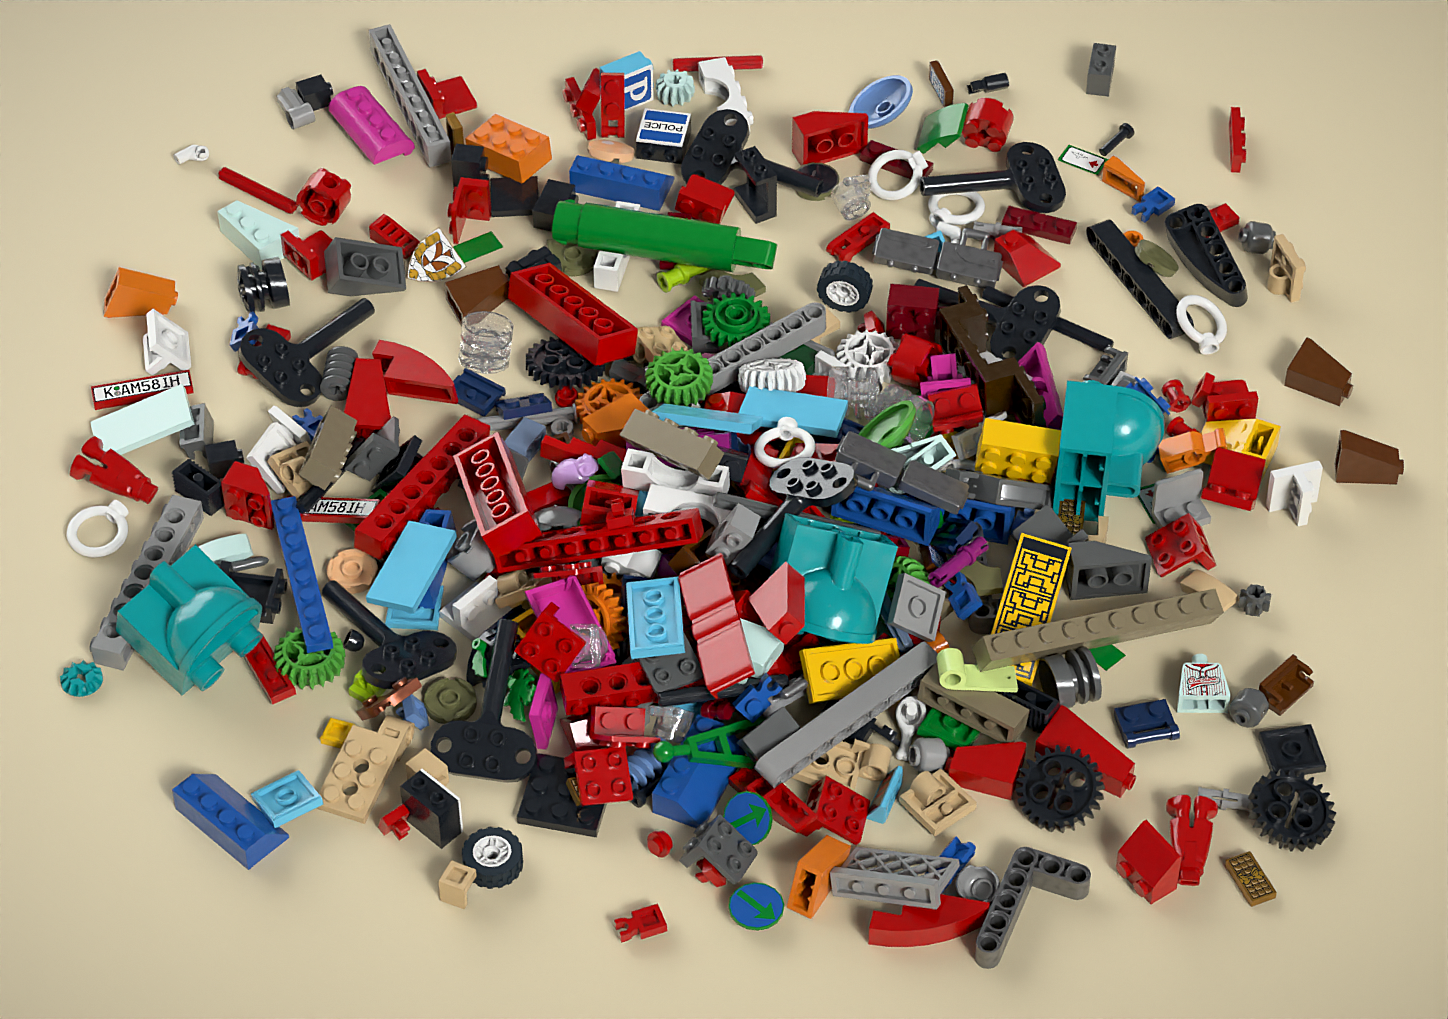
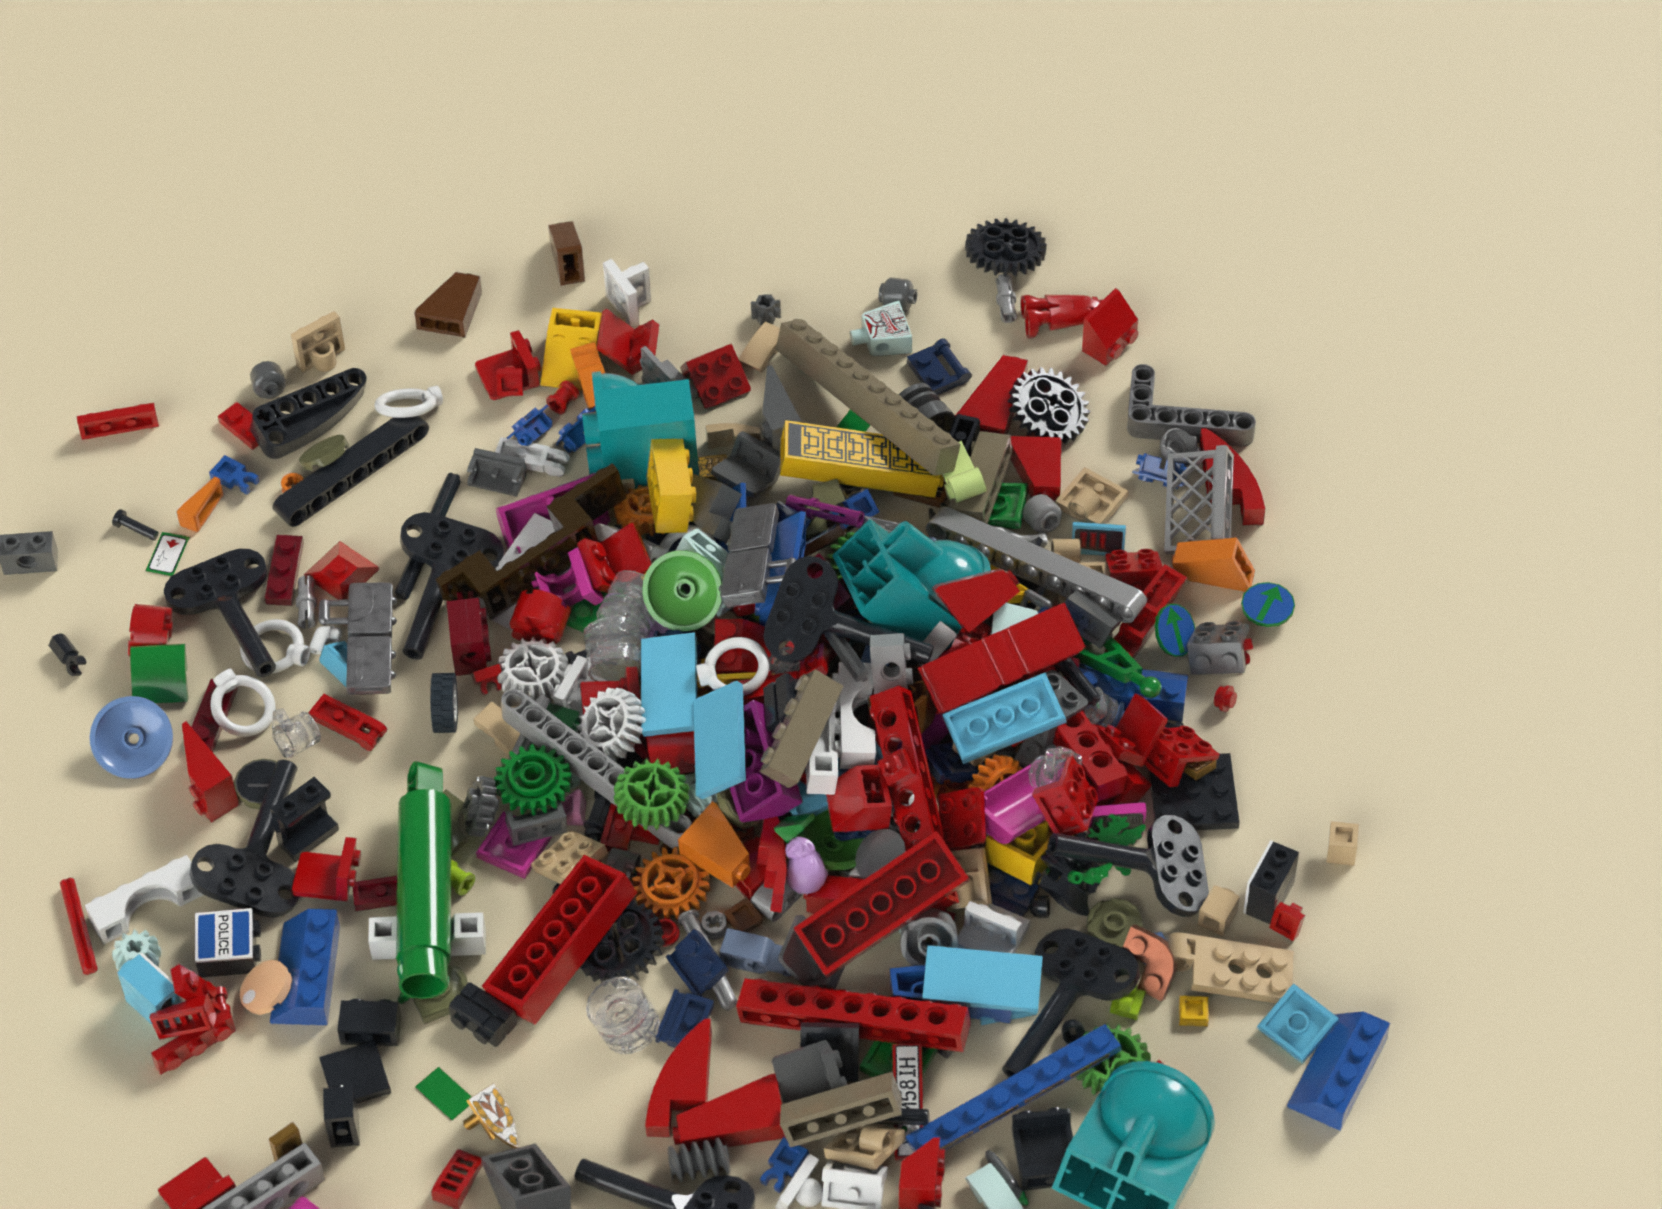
camera: 105 degrees left, 5 degrees up
(353, 570) = (976, 1067): light nougat tile -> none
(470, 201) = (409, 1105): red bracket -> none
(477, 292) = (537, 1060): reddish brown slope -> none
(491, 844) = (1304, 817): black wheel -> none
(511, 147) = (288, 1088): orange brick -> none
(644, 921) = (1320, 687): red plate -> none
(941, 83) = (79, 695): reddish brown tile -> none
(1175, 396) = (513, 410): red bush -> none
(1250, 878) = (1085, 269): pearl gold tile -> none
(1286, 684) = (857, 277): reddish brown hinge -> none
(1292, 749) = (931, 263): black tile -> none

